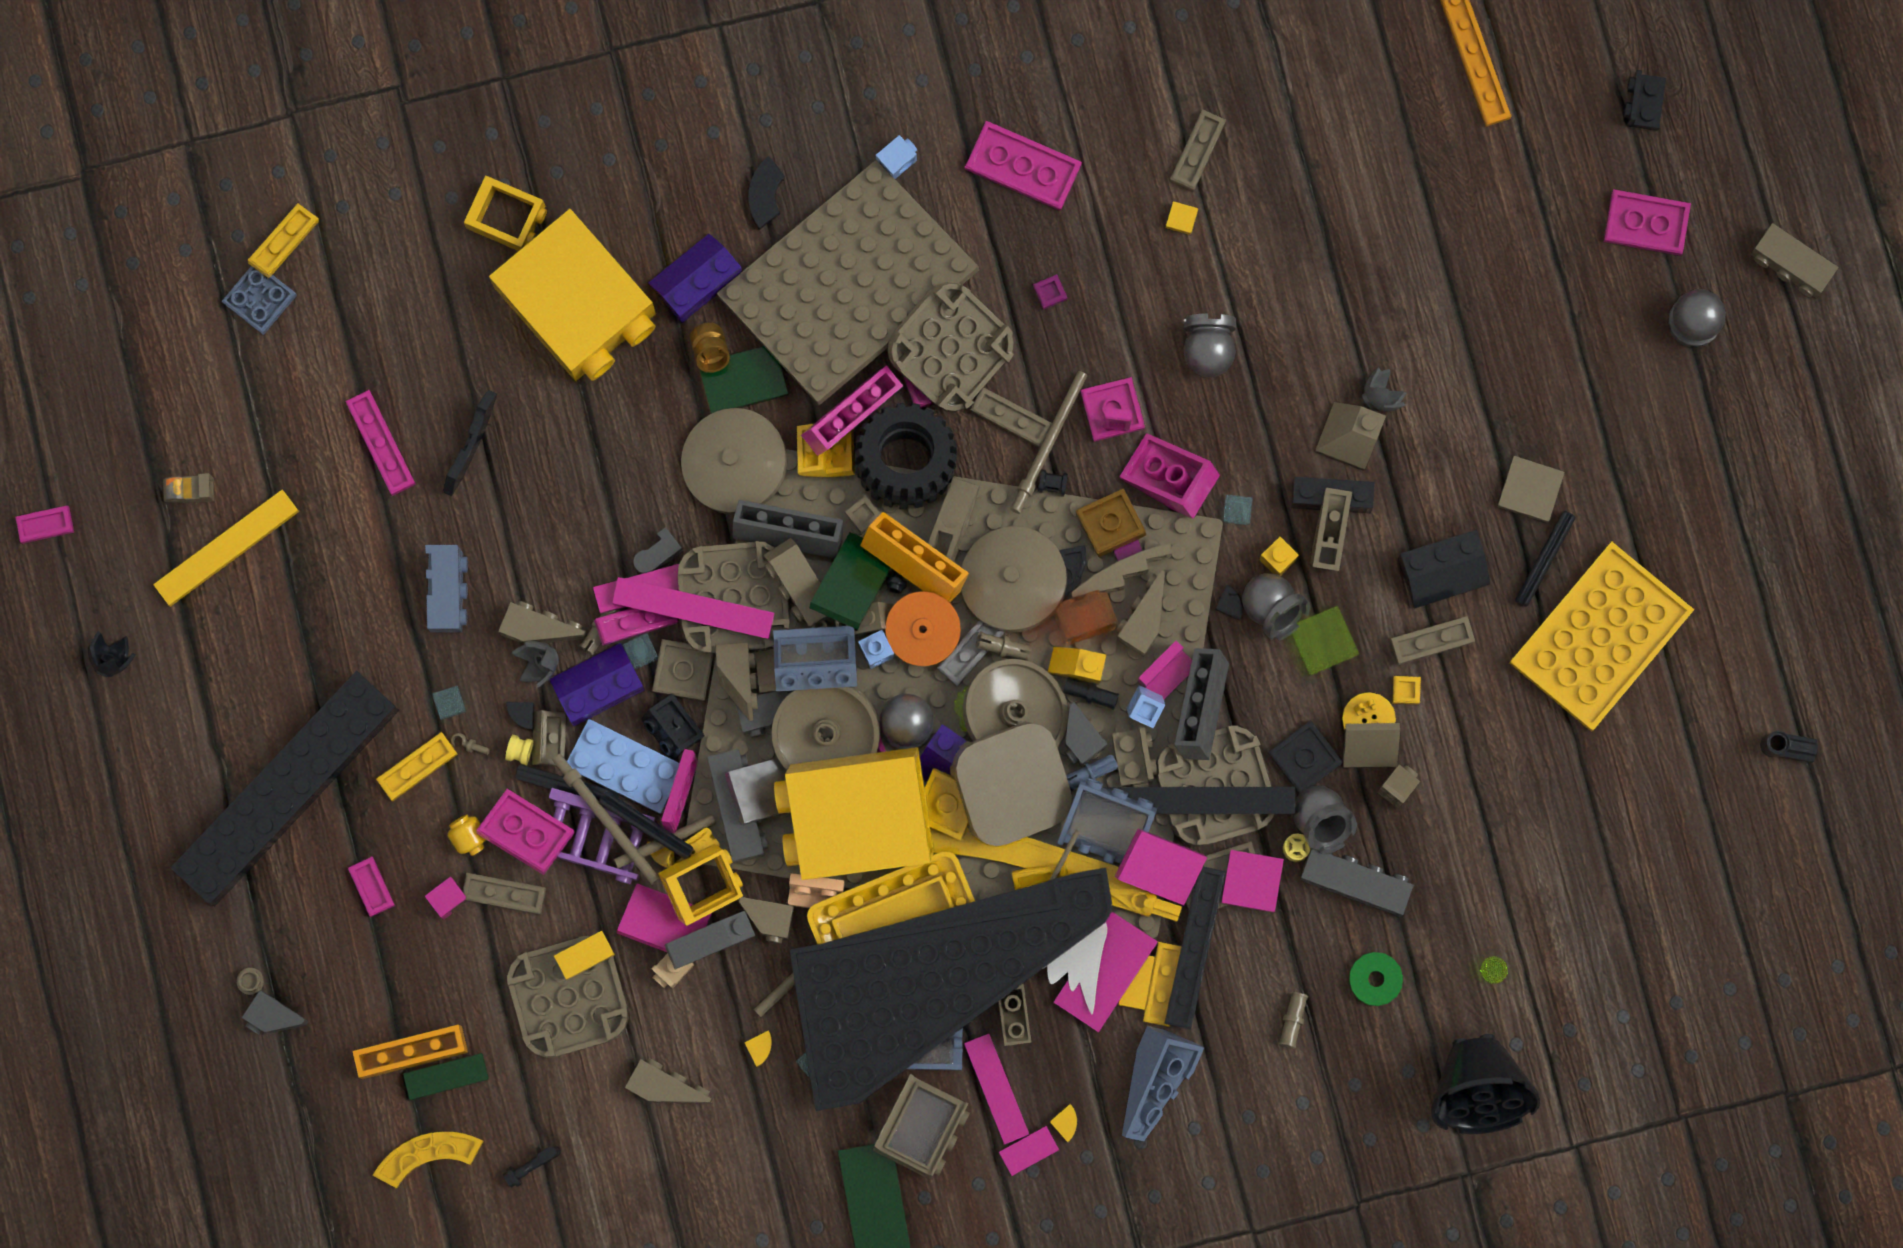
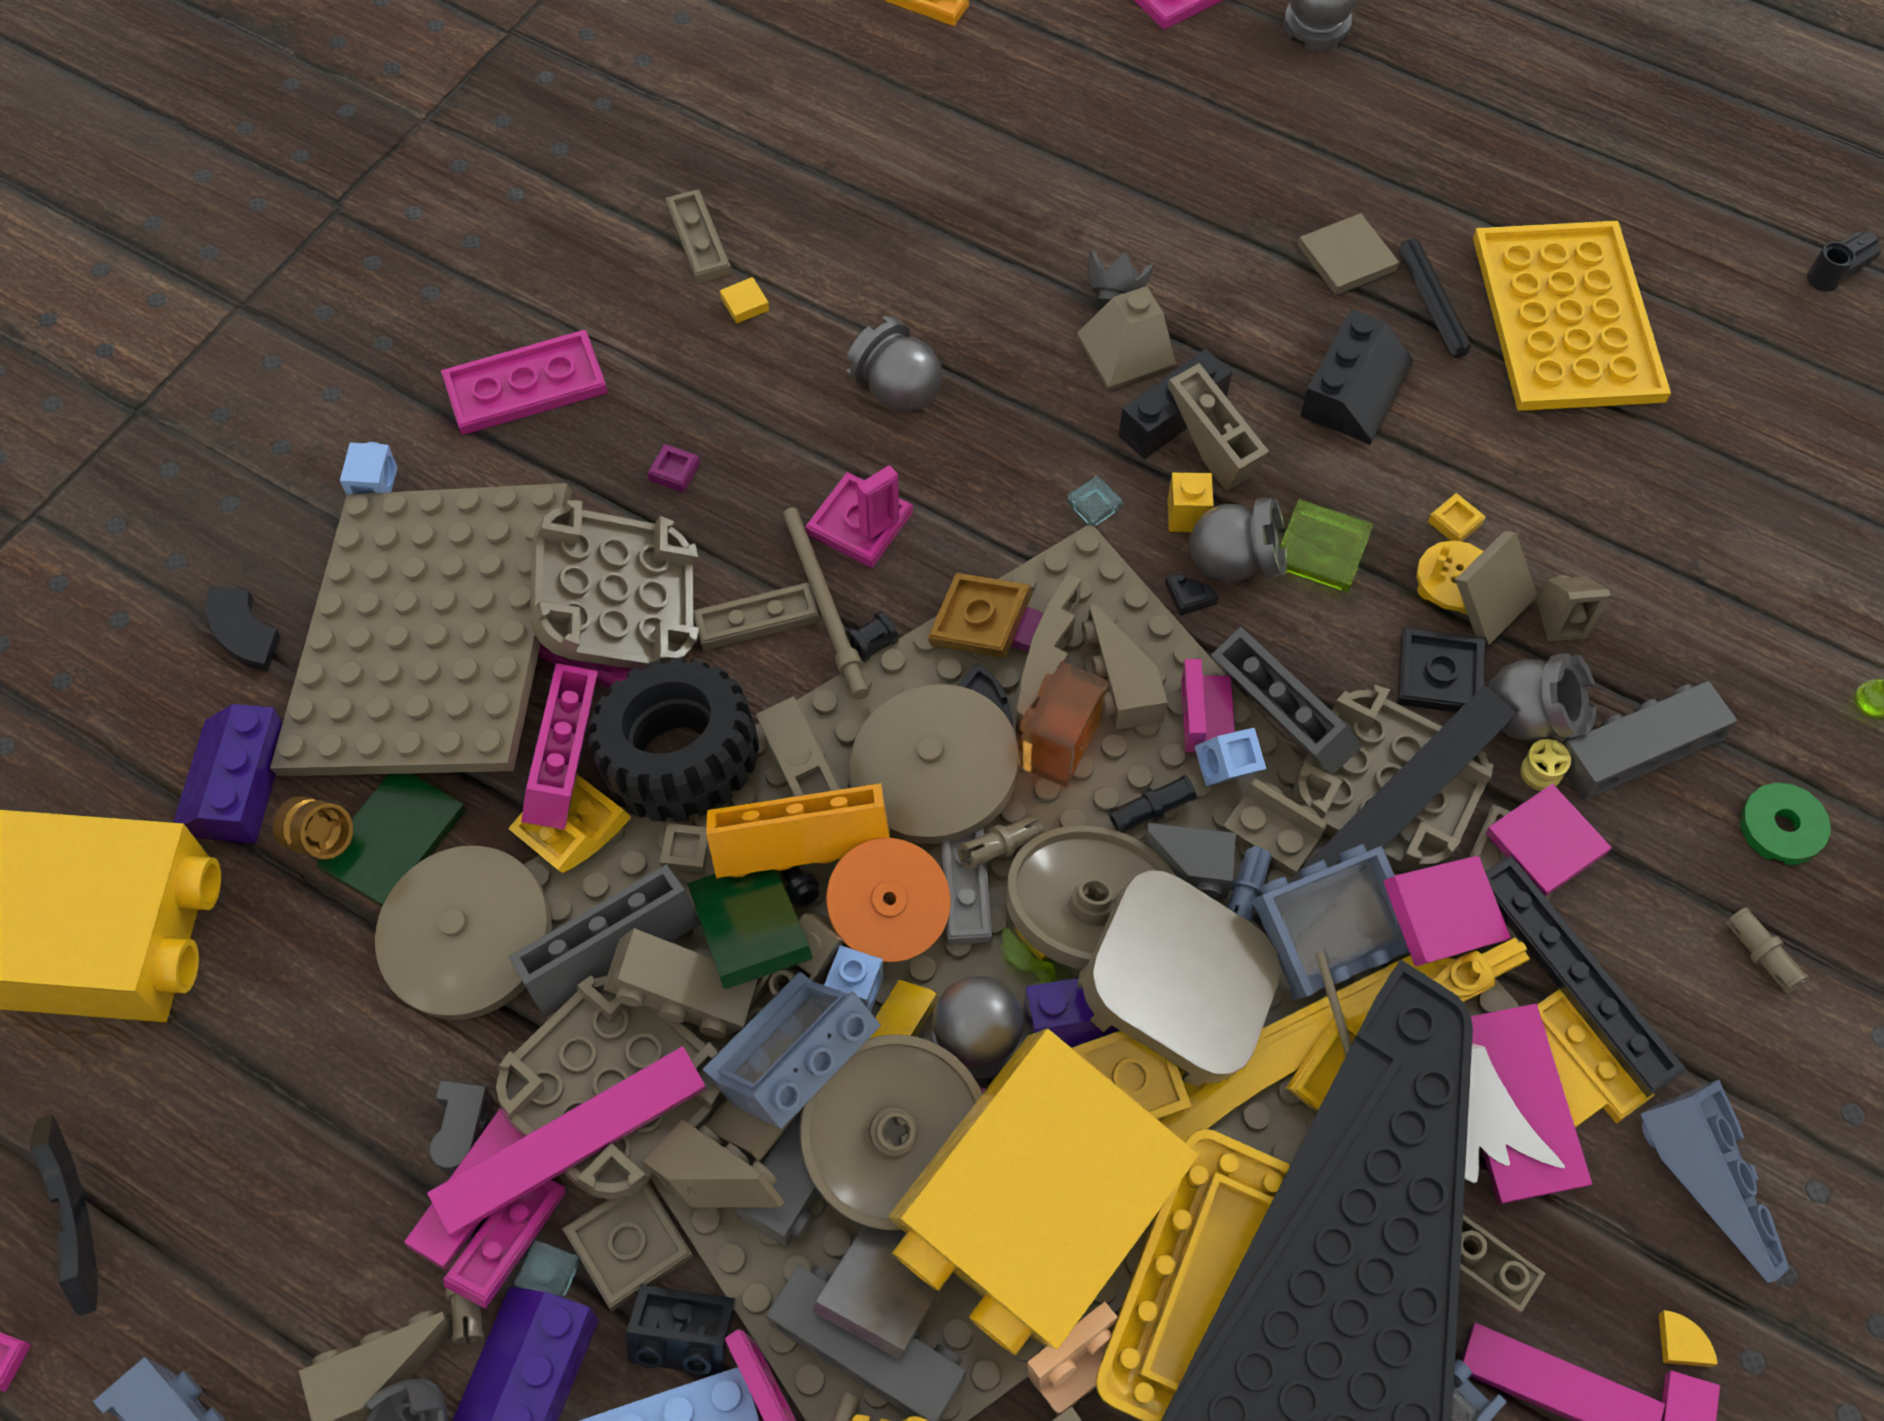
camera: 45 degrees left, 20 degrees down
(881, 683) = (905, 1010): none -> yellow slope
(1077, 664) = (1105, 784): yellow slope -> none
(1170, 475) = (991, 522): dark pink slope -> none
(1432, 640) = (1426, 450): dark tan plate -> none

